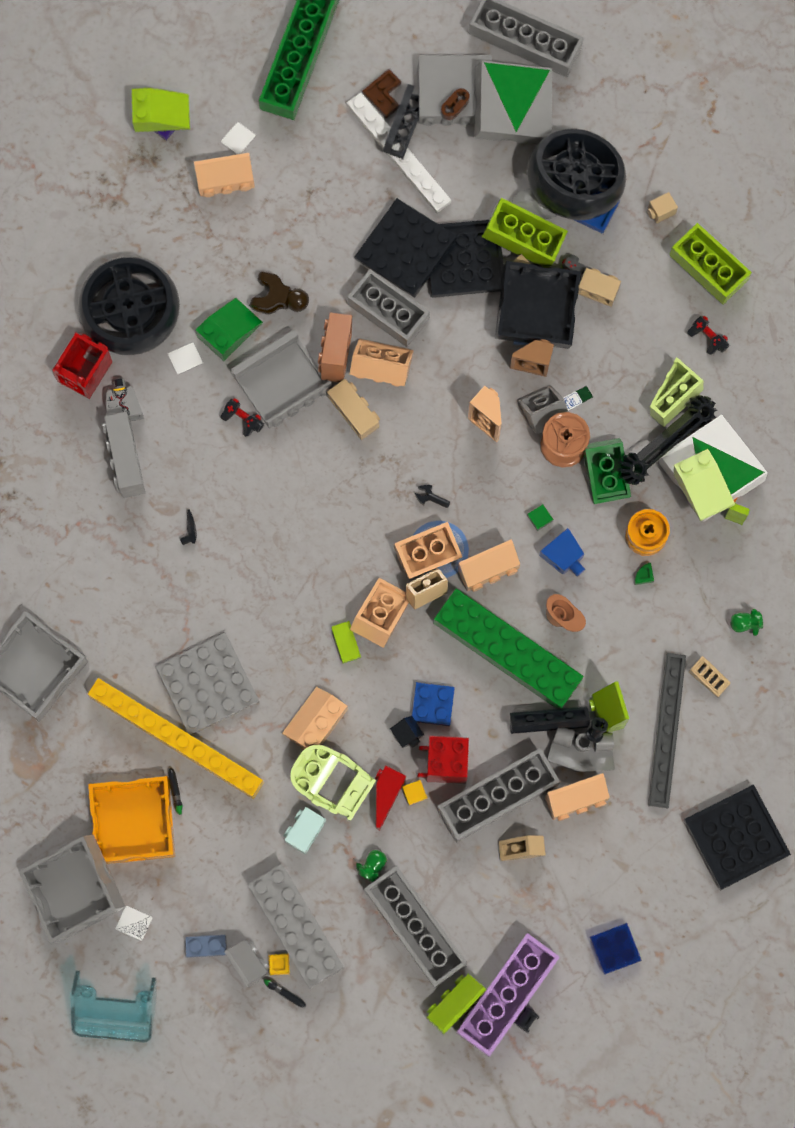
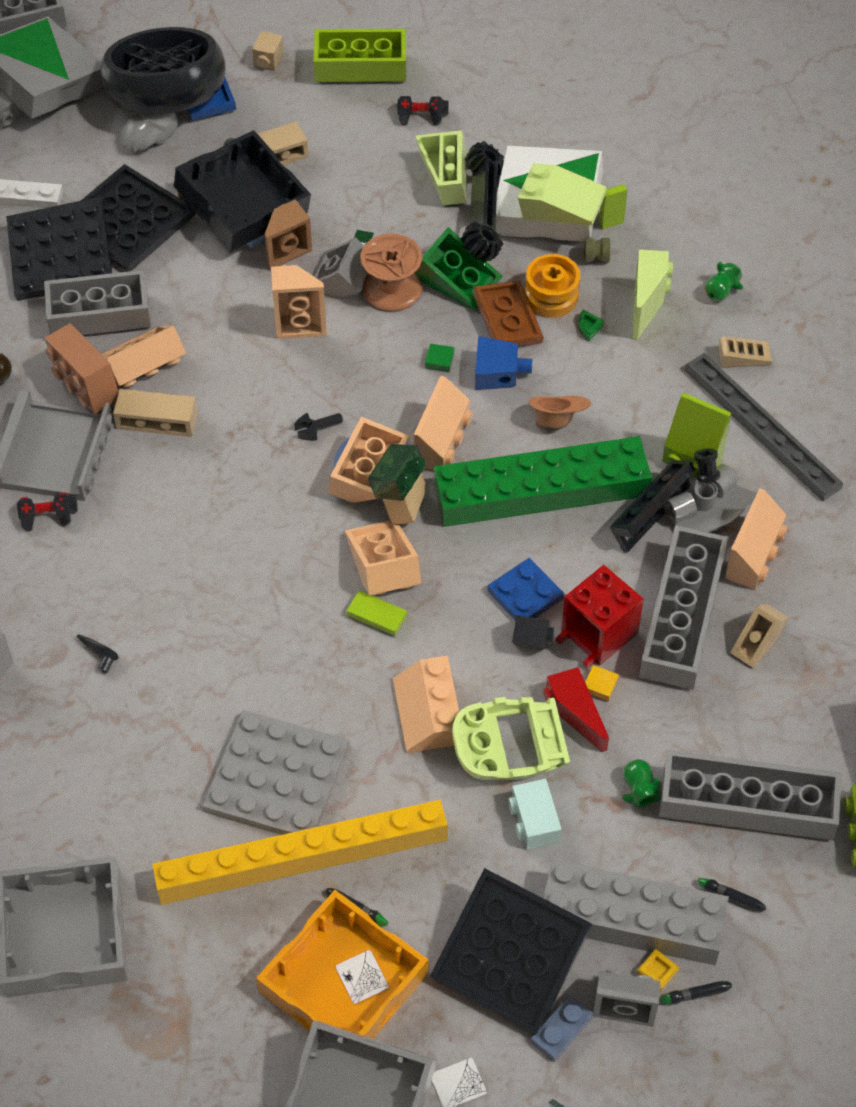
camera: 45 degrees left, 20 degrees down
(142, 828) = (362, 976): none -> white sticker
(216, 888) = (511, 951): none -> black plate
(355, 964) = (734, 895): none -> black piece
(426, 576) = (396, 472): none -> clear green brick
(524, 233) = (159, 148): lime brick -> none
(605, 526) = (508, 313): none -> dark orange tile
(697, 588) = (650, 287): none -> yellowish green slope
(701, 531) = (597, 249): none -> olive wheel

